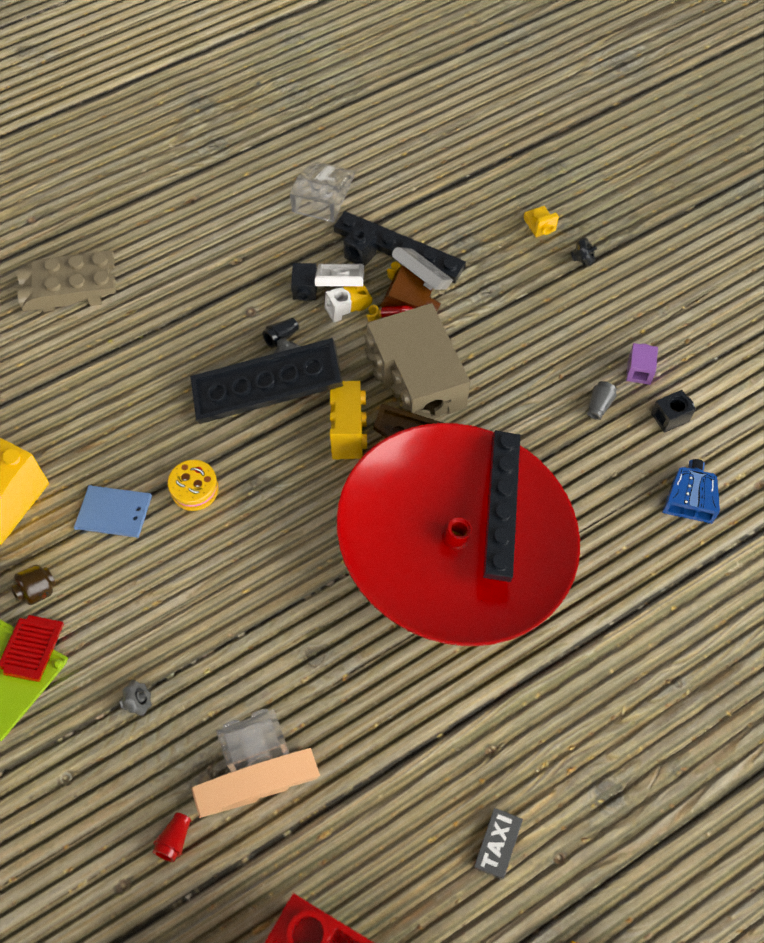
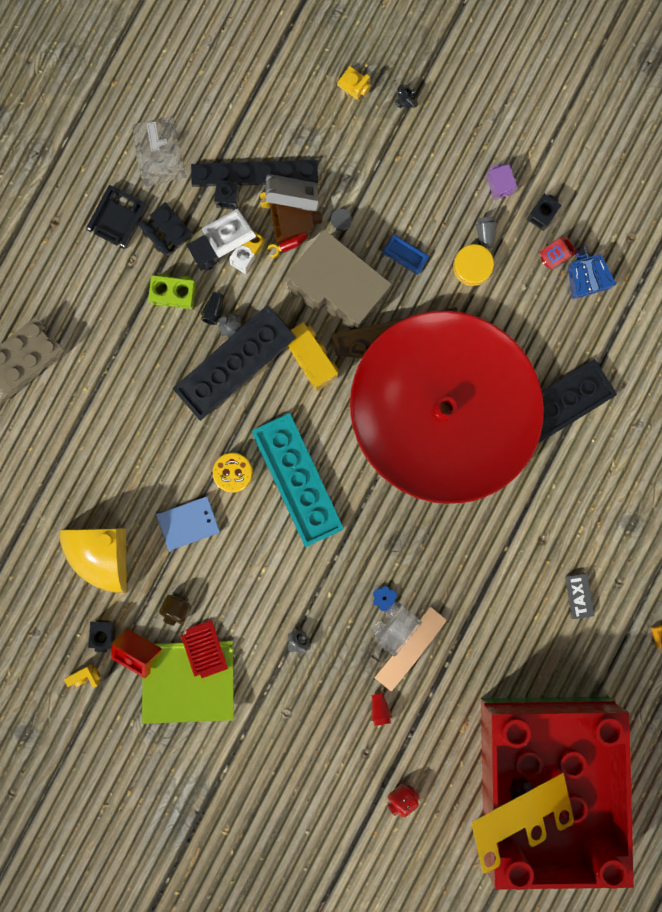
camera: 30 degrees left, 25 degrees up
(242, 222) = (114, 221): none -> black container
(252, 298) = (171, 297): none -> lime brick
(253, 531) = (297, 480): none -> teal plate
(263, 701) = (380, 593): none -> blue plant
(290, 245) = (171, 226): none -> black plate
(457, 321) = (341, 219): none -> dark grey tile
(502, 507) = (466, 369): black plate -> none
(504, 381) = (405, 254): none -> blue tile
(569, 422) = (473, 265): none -> yellow head
(606, 609) = (574, 397): none -> black plate
(668, 452) = (558, 252): none -> red brick

